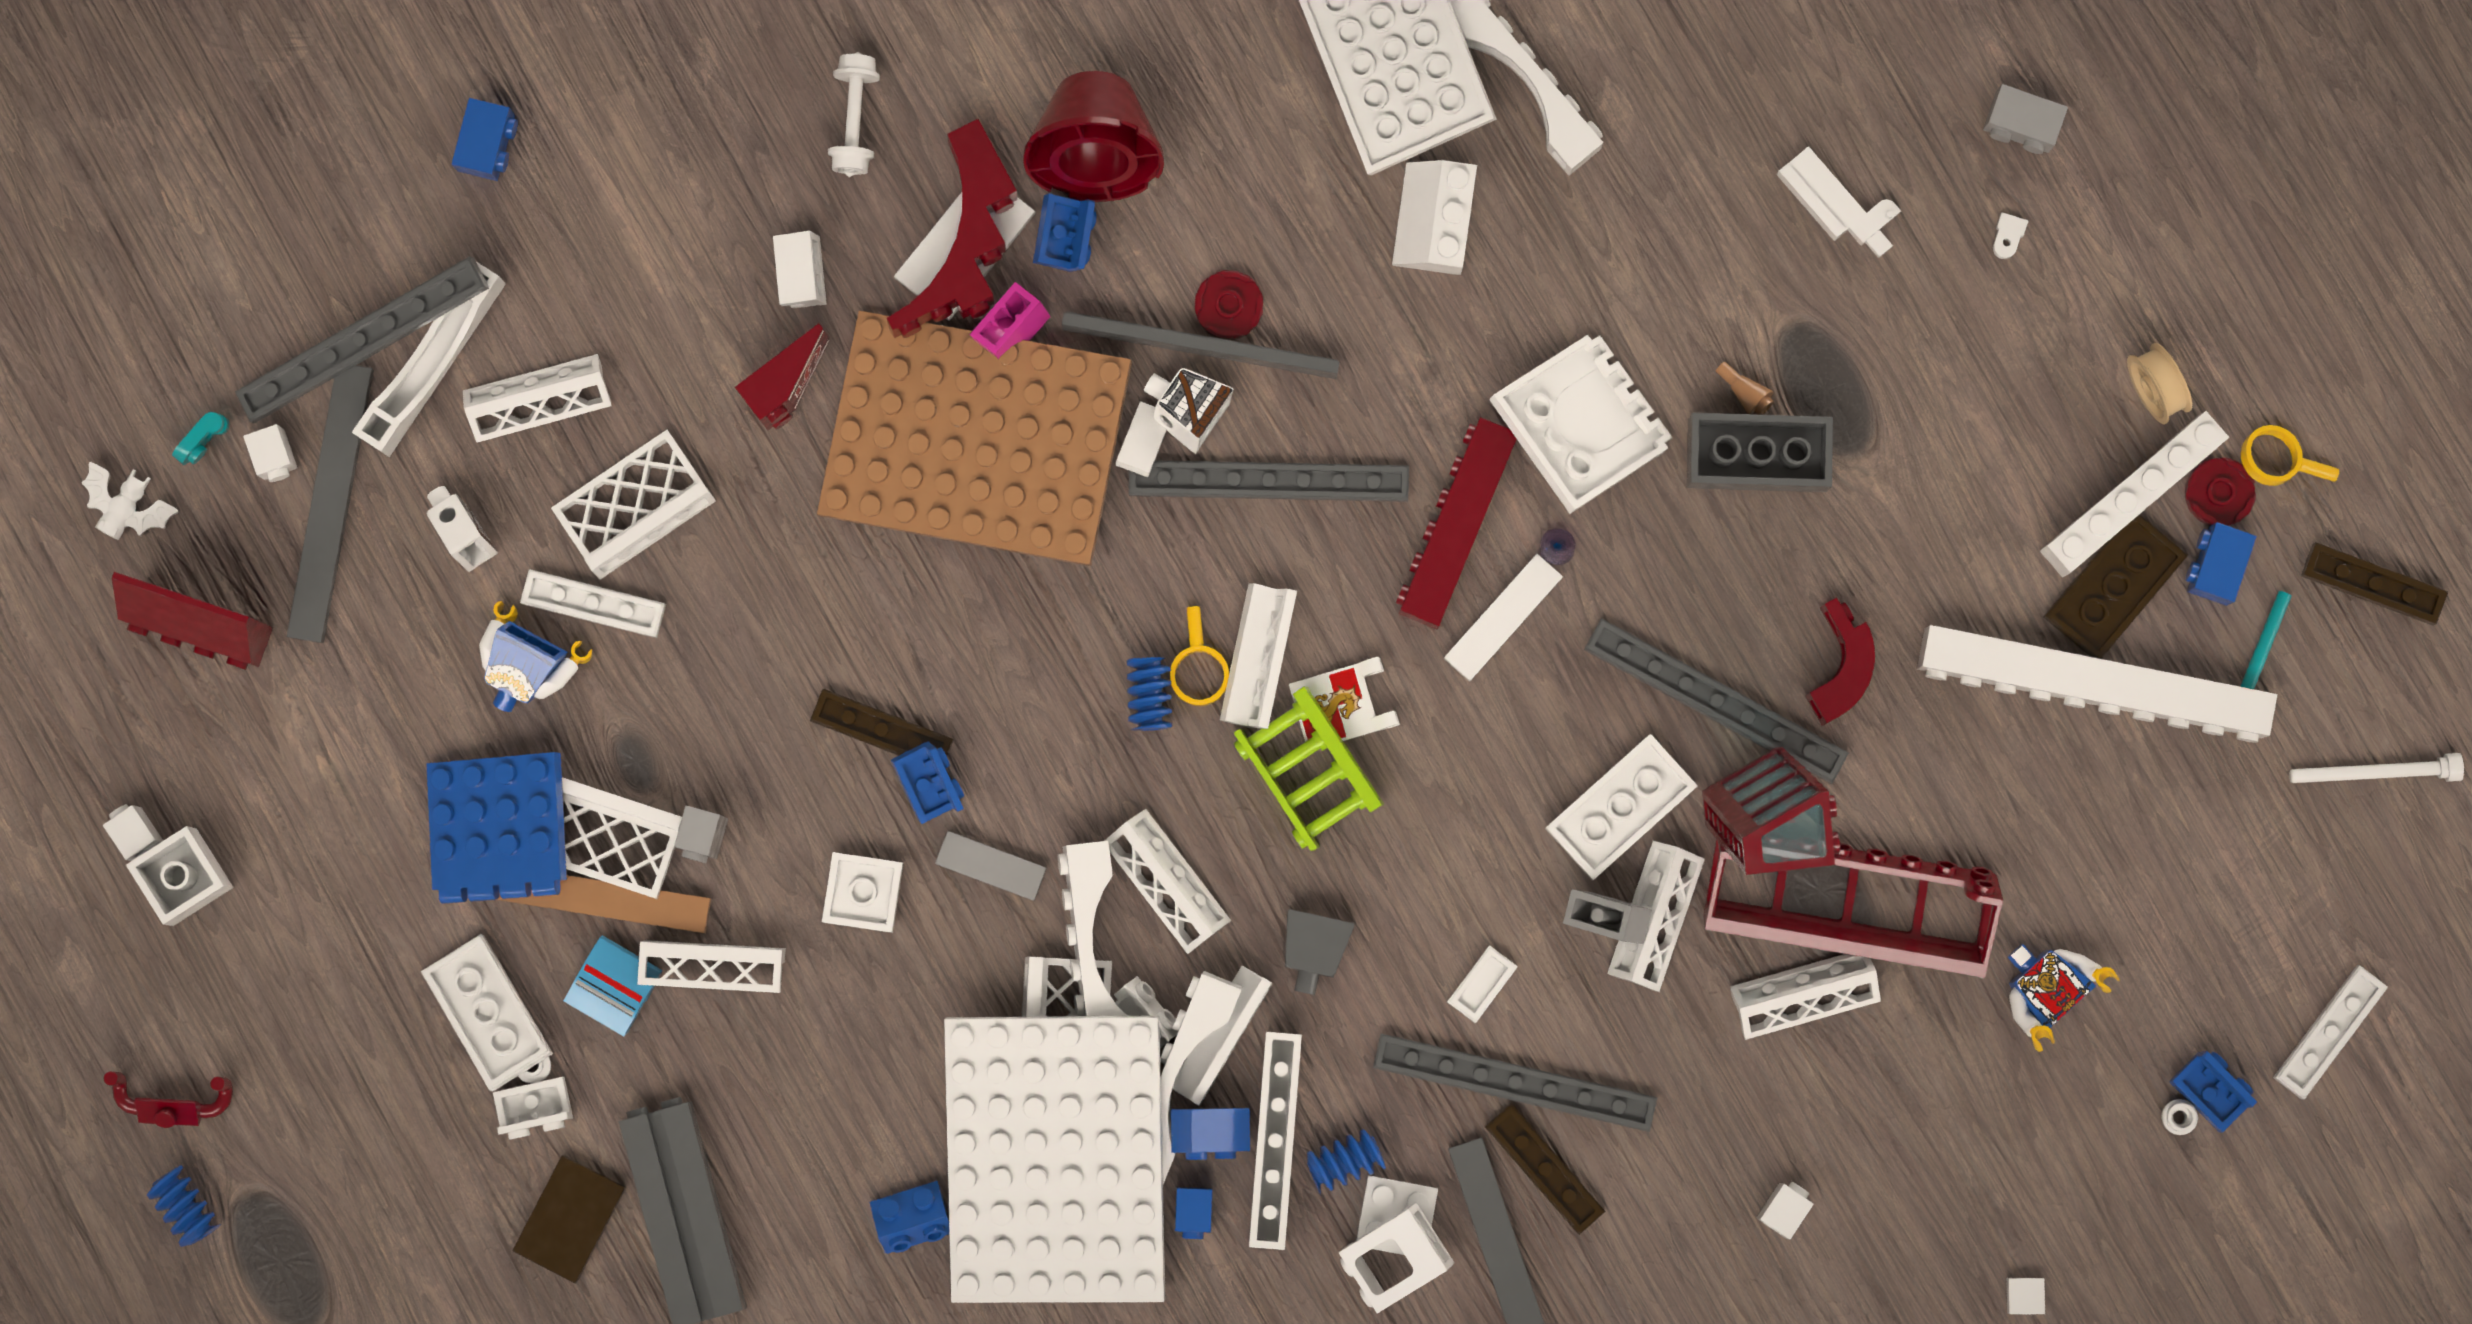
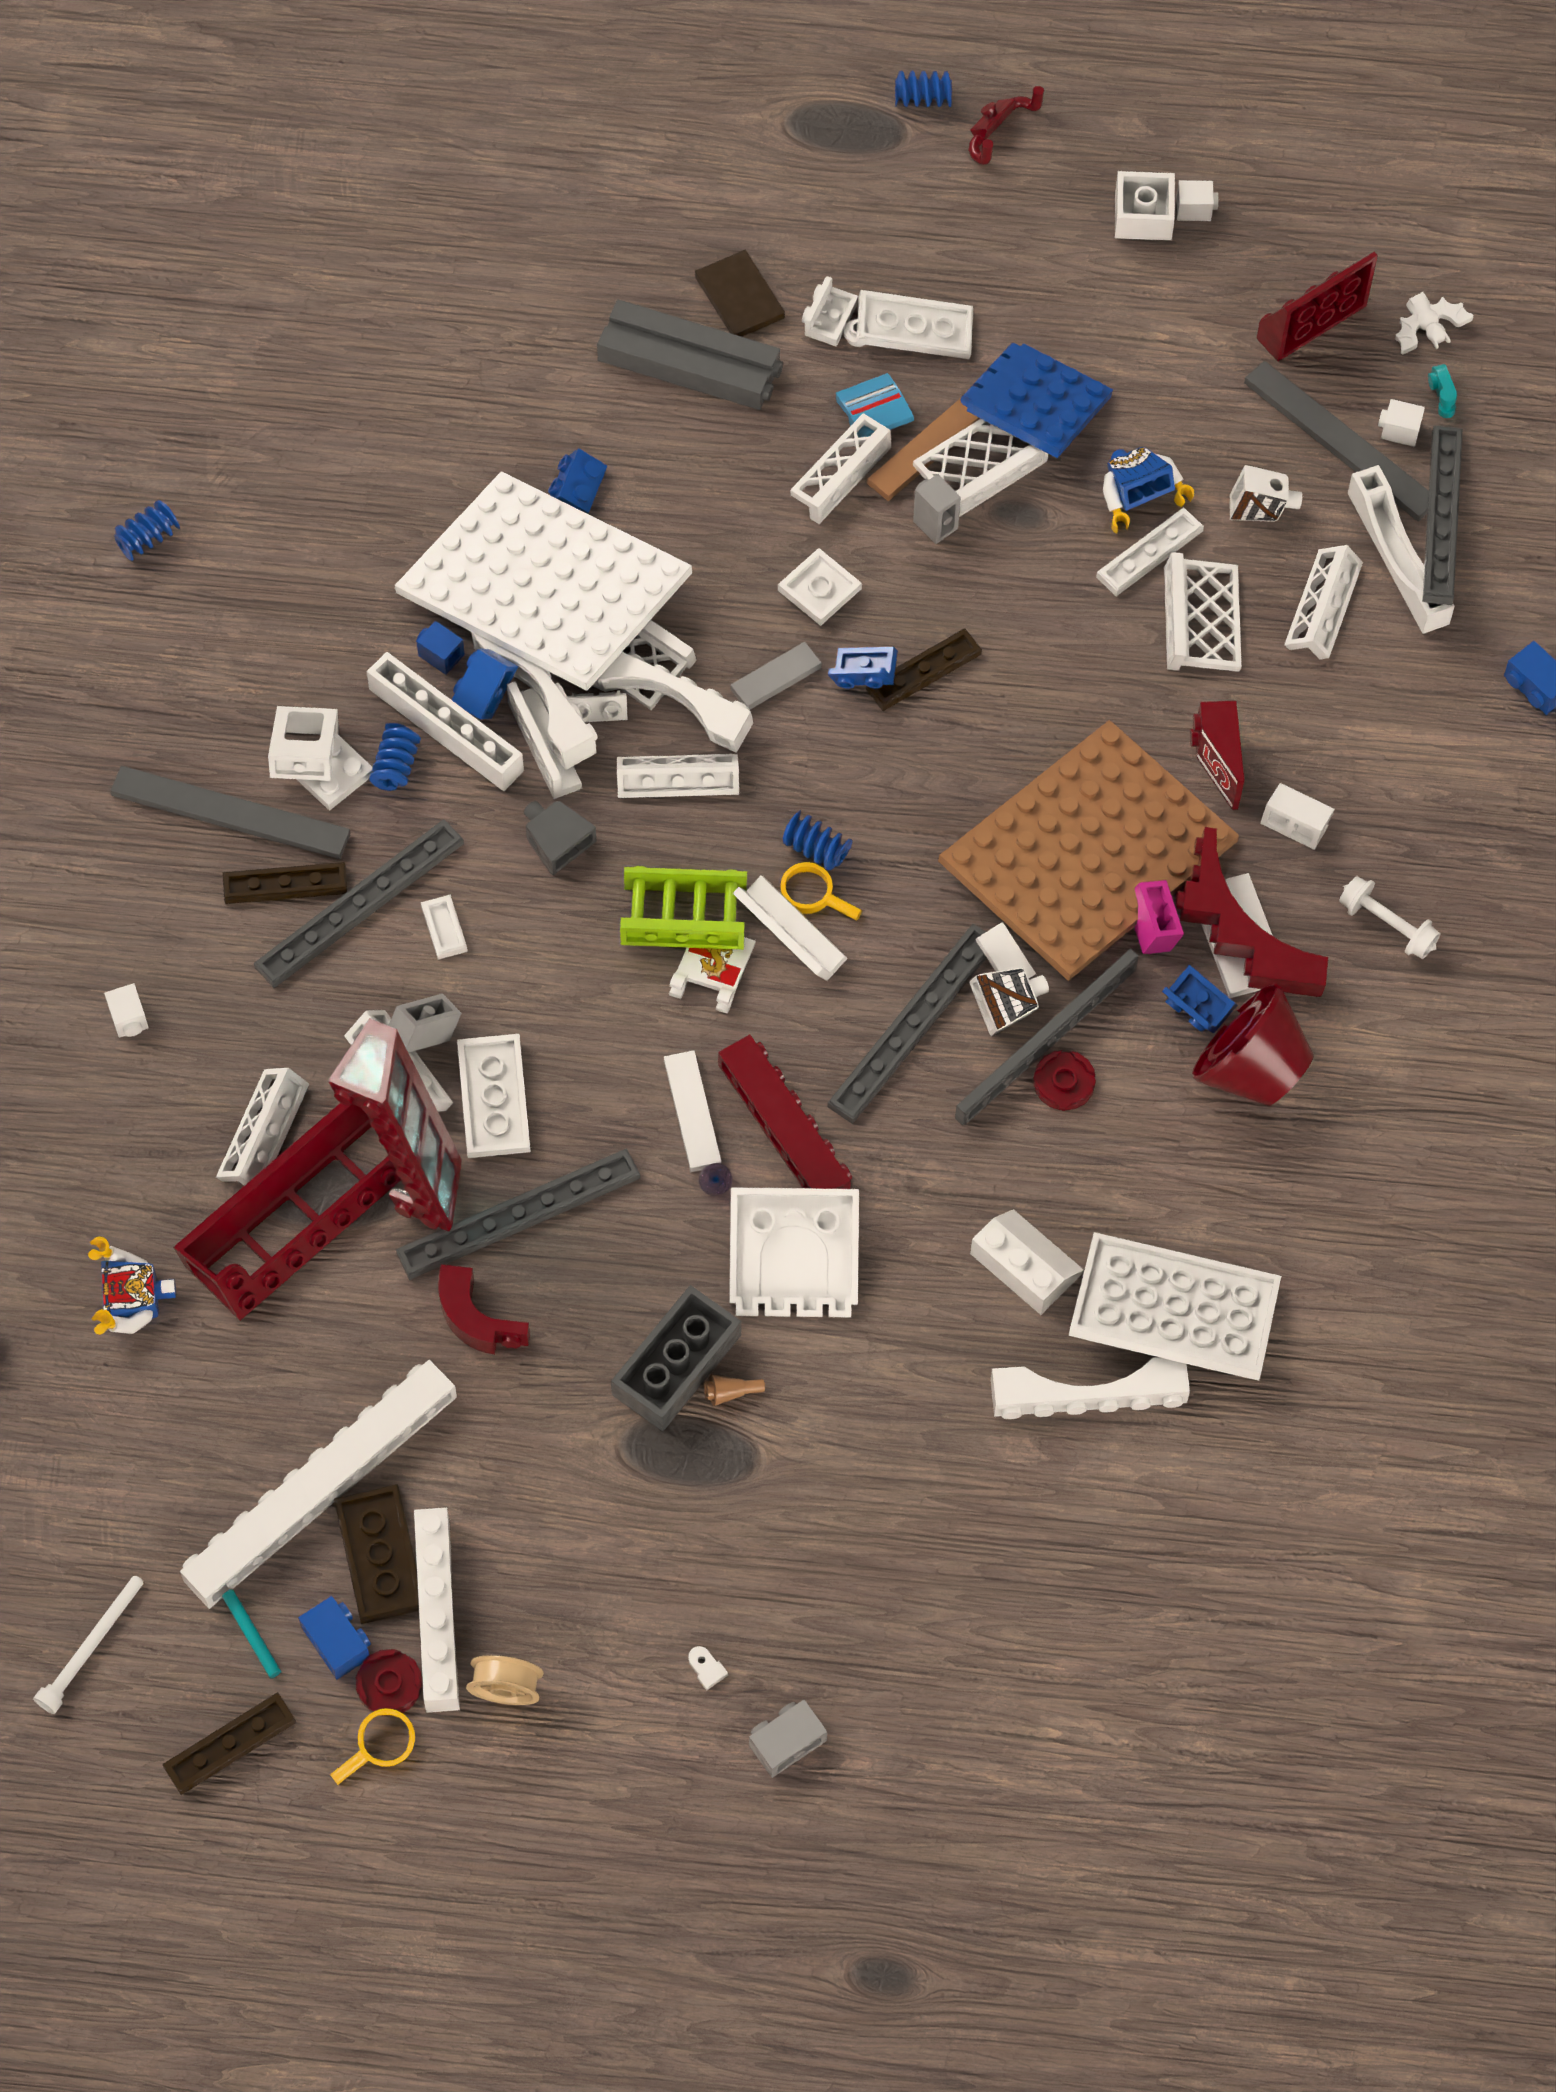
camera: 125 degrees right, 20 degrees down
(1834, 205) = (826, 1551): white piece -> none

